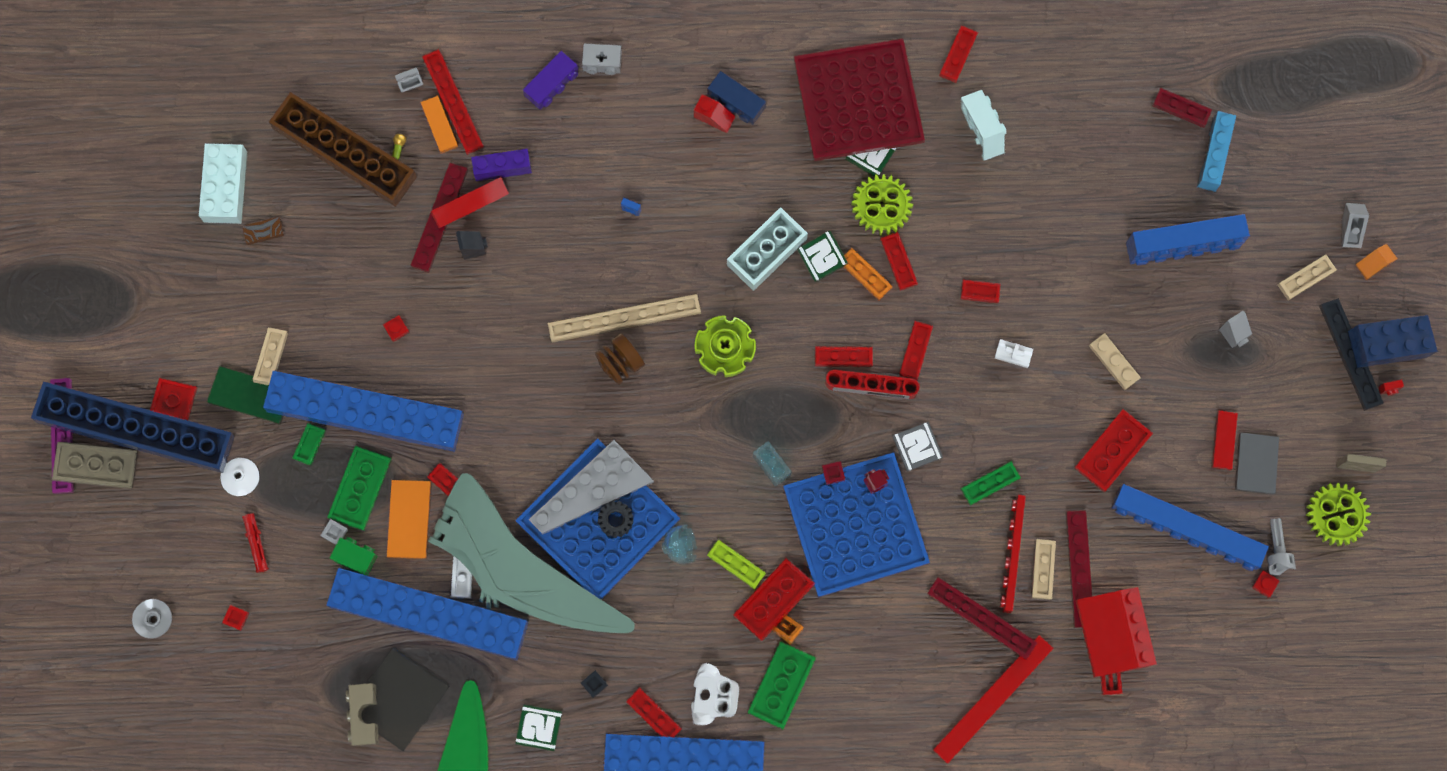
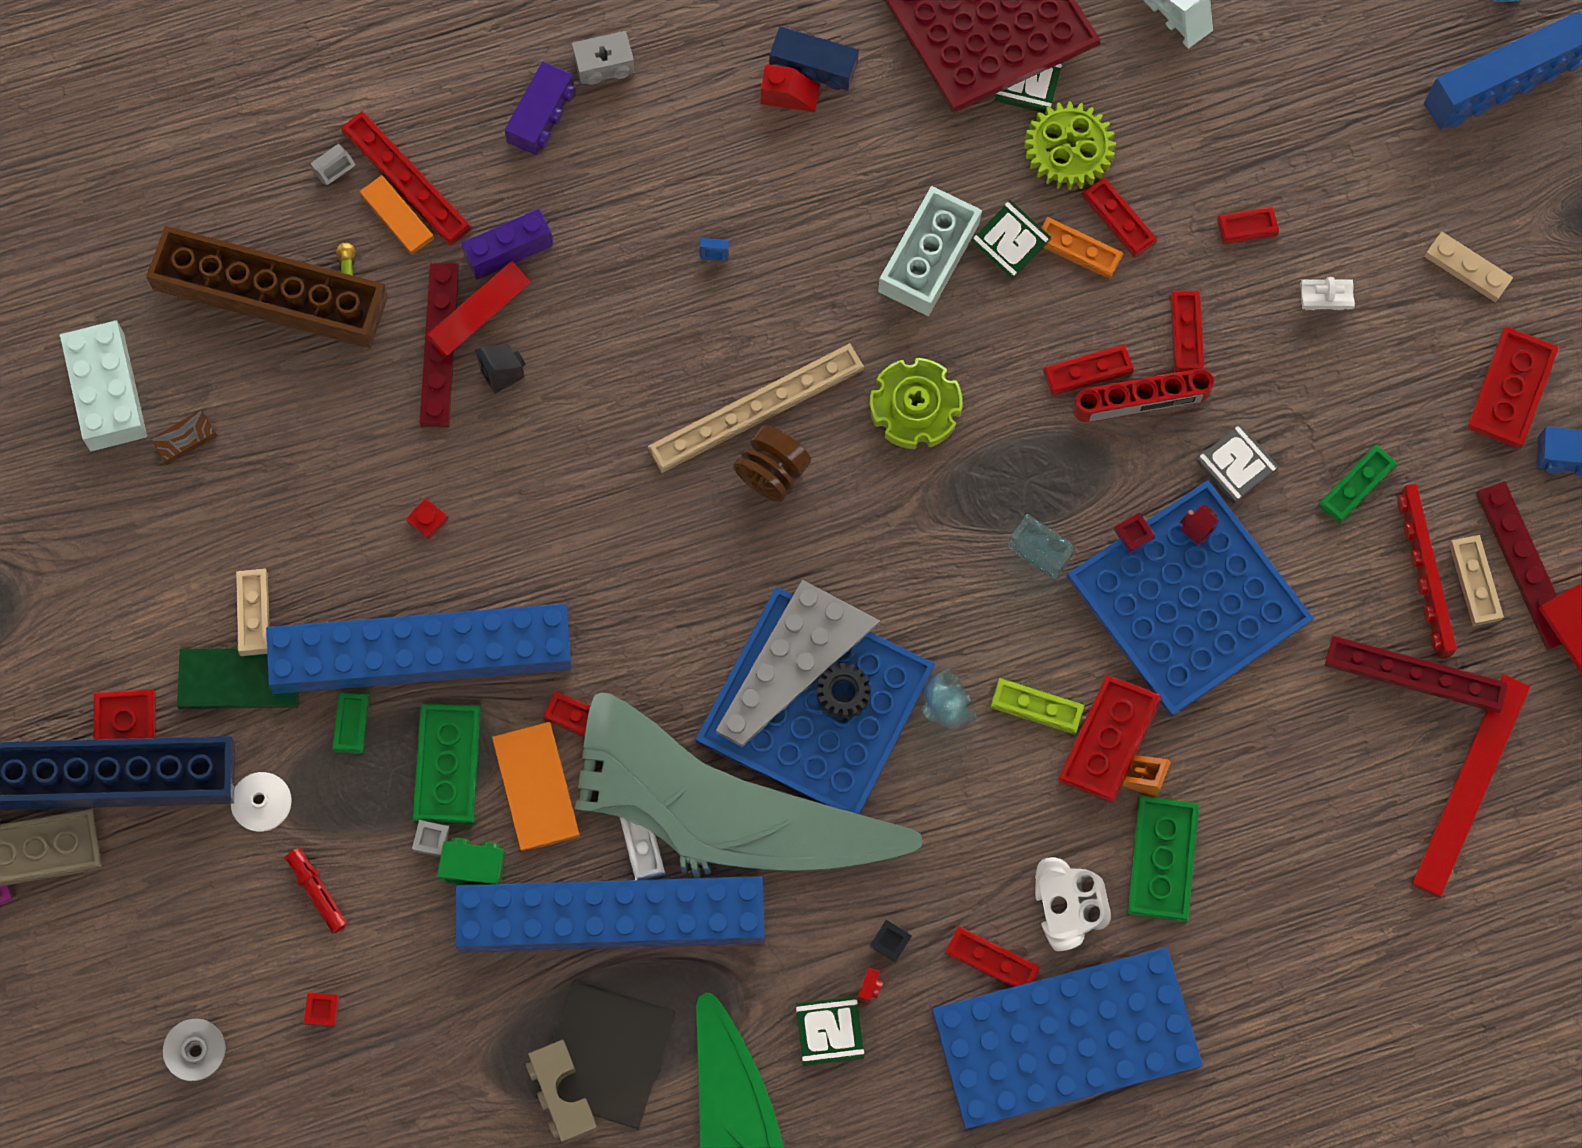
camera: 20 degrees left, 5 degrees down
(572, 708) = (870, 987): none -> red plate

